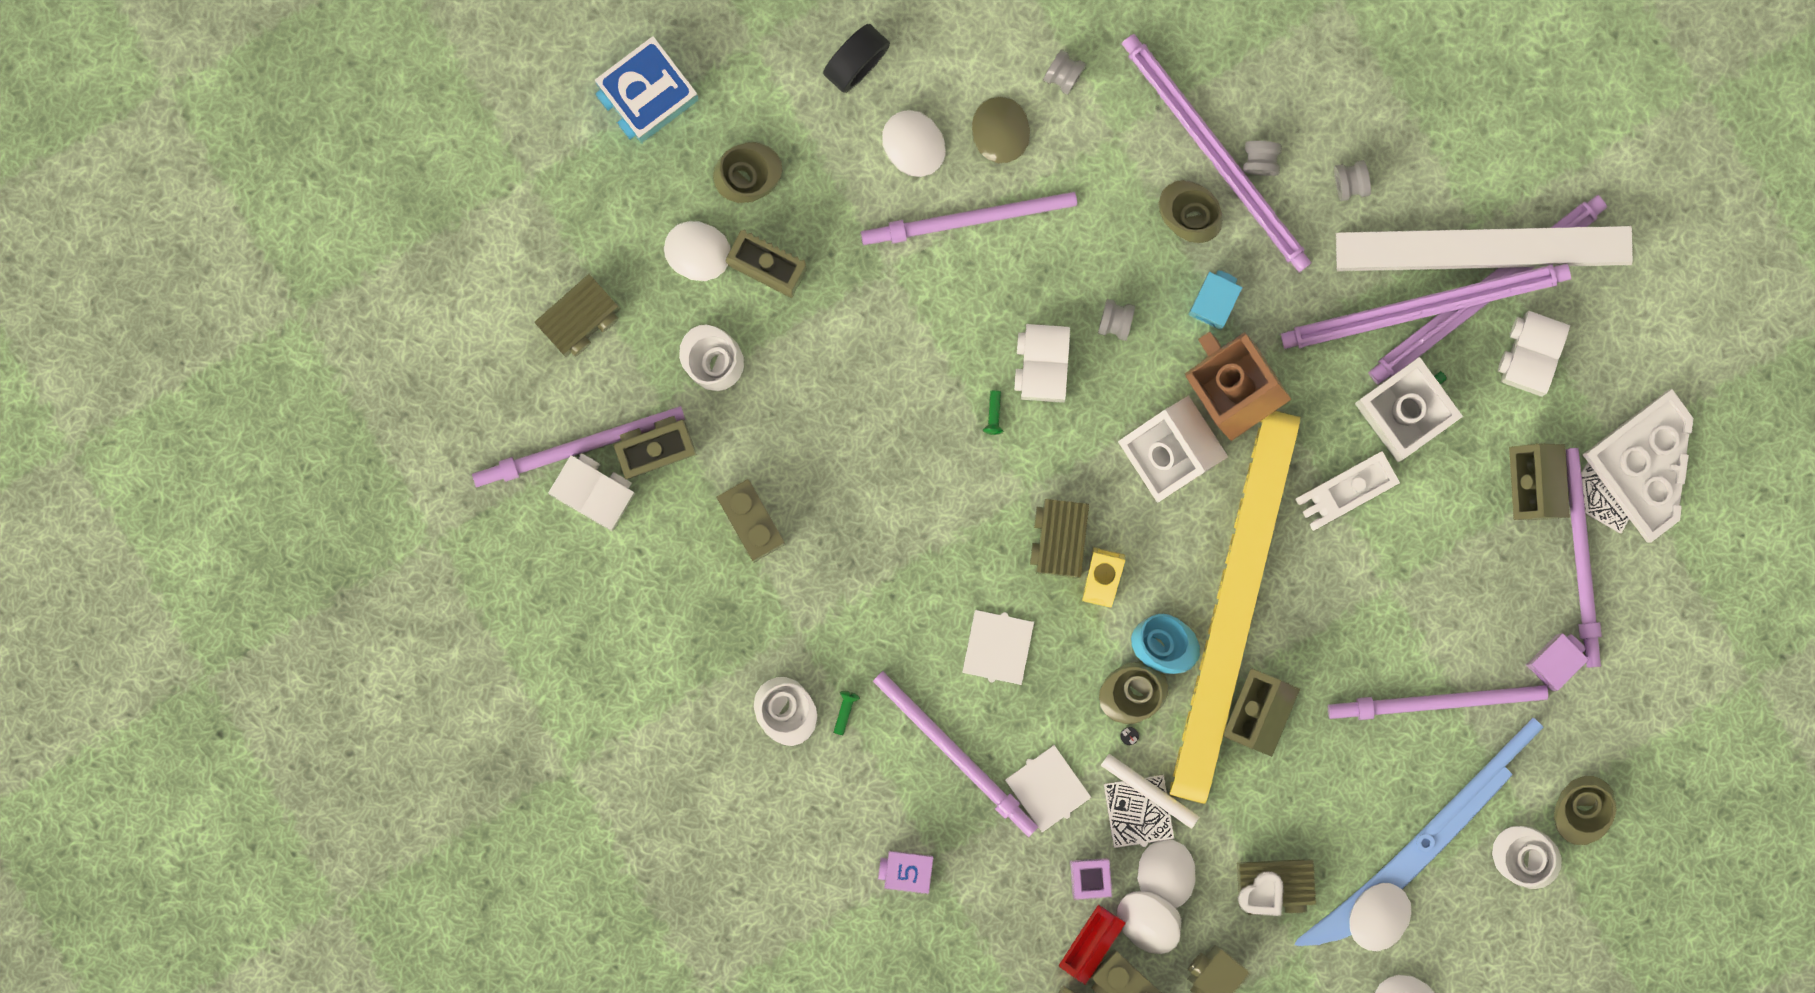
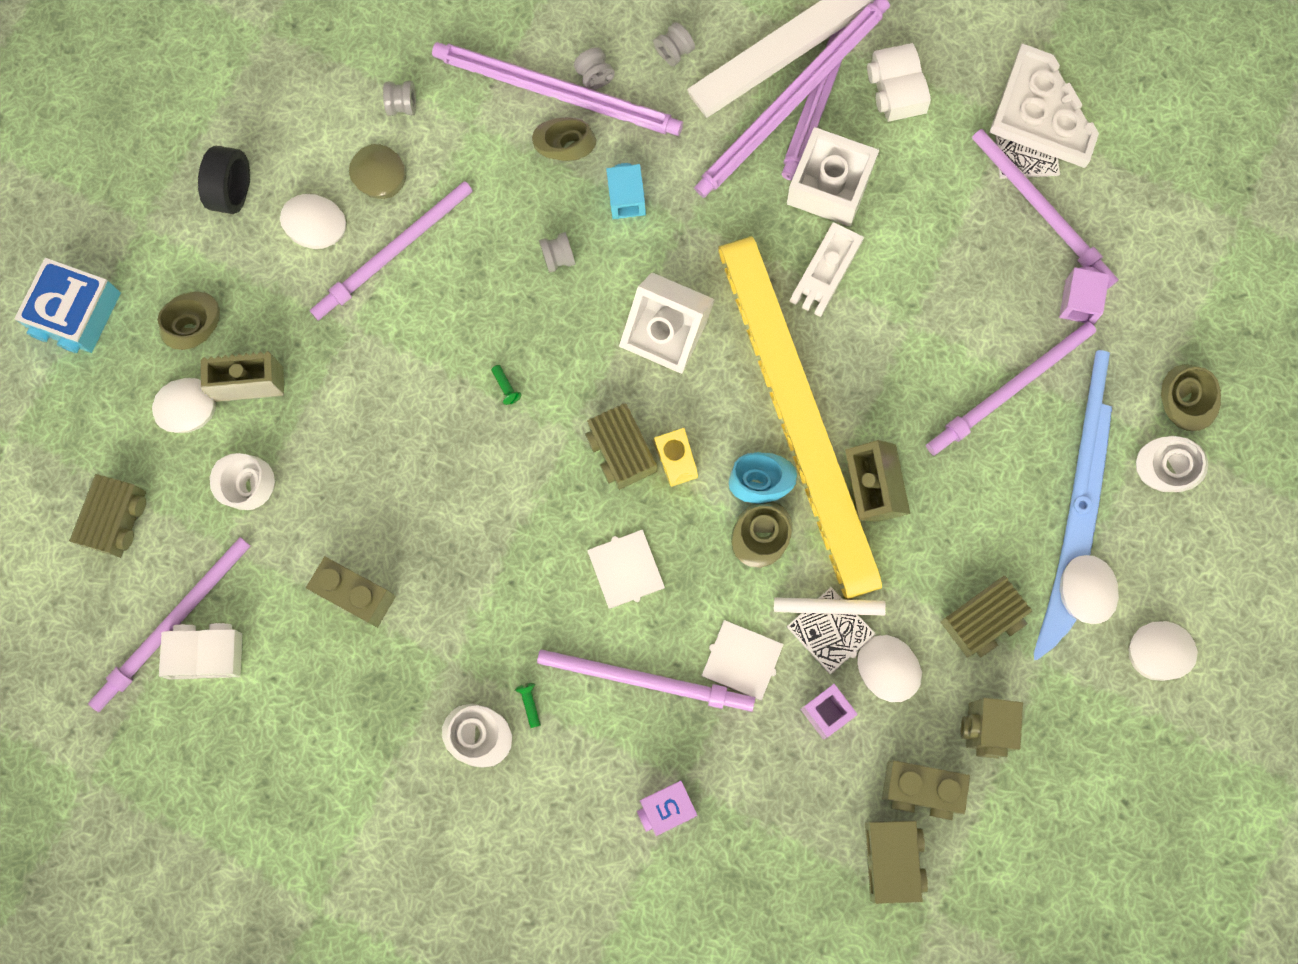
camera: 20 degrees left, 10 degrees down
(655, 449) = (232, 582): olive brick -> none
(1044, 363) = (520, 319): white brick -> none
(1091, 944) = (867, 769): red tile -> none
(1129, 736) = (781, 573): black piece -> none
(1150, 922) = (903, 718): white hat -> none
(1236, 384) = (684, 236): medium nougat hinge -> none
(1263, 896) = (984, 630): white tile -> none
(1539, 482) = (971, 168): olive brick -> none

